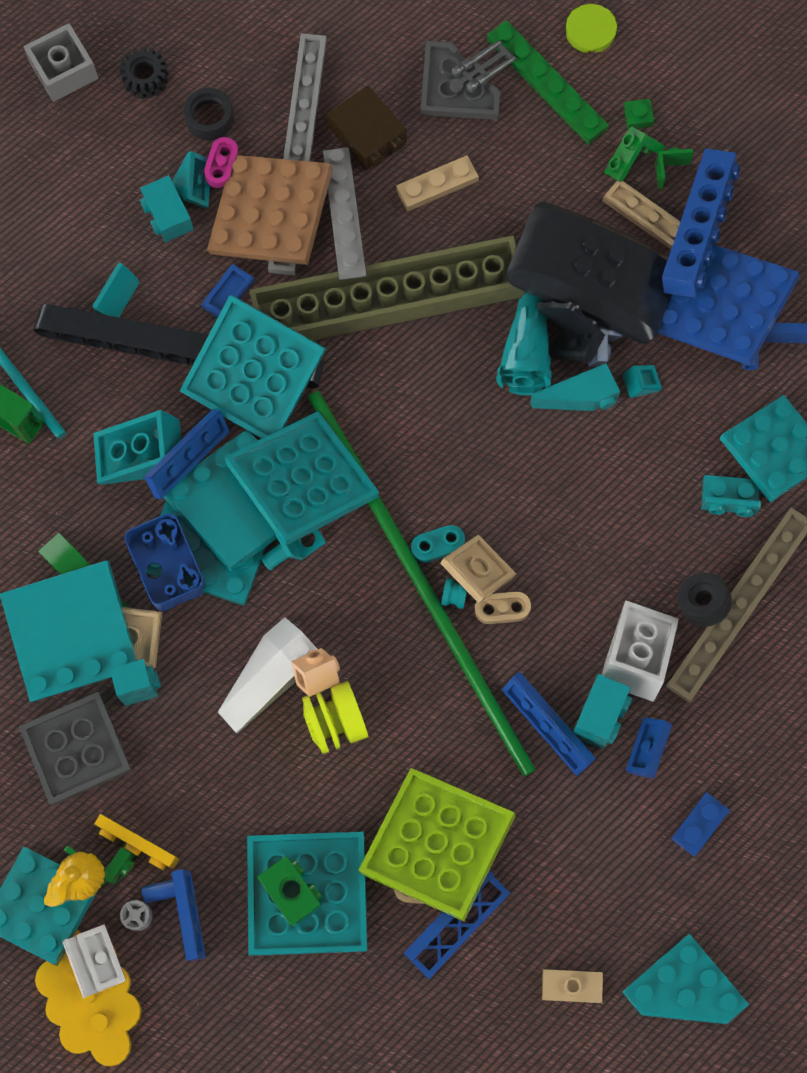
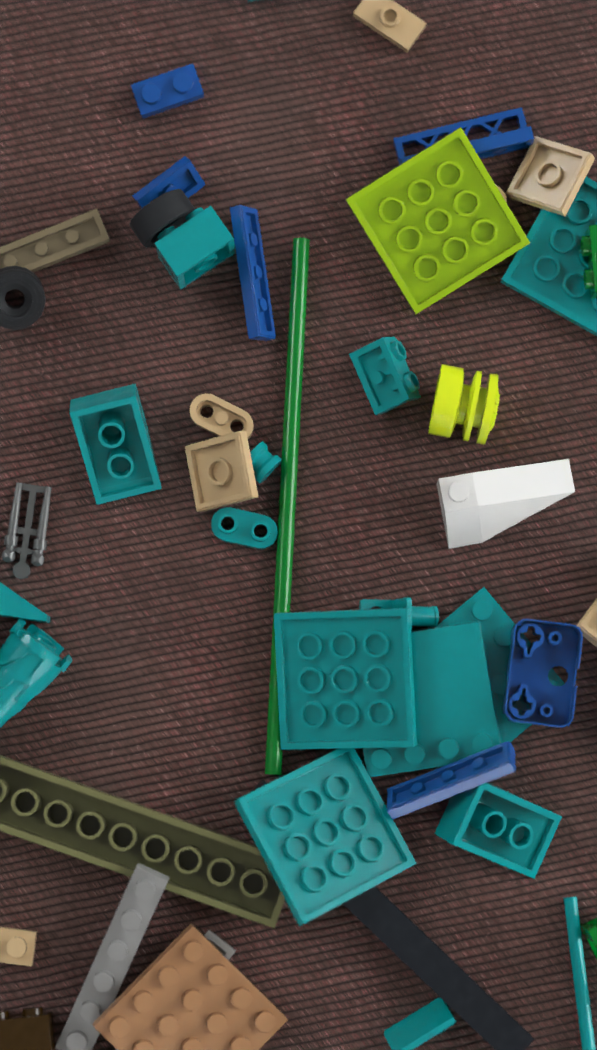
camera: 150 degrees left, 10 degrees up
(233, 282) = (294, 954): blue tile -> none
(316, 671) = (455, 458): light nougat brick -> none
(374, 934) = (550, 176): none -> tan tile
(405, 710) = (385, 374): none -> teal bracket
(566, 545) = (115, 443): none -> teal slope
(572, 426) = (21, 569): none -> dark grey piece
(638, 715) = (159, 215): none -> black tyre
(641, 650) = (112, 289): white slope -> none

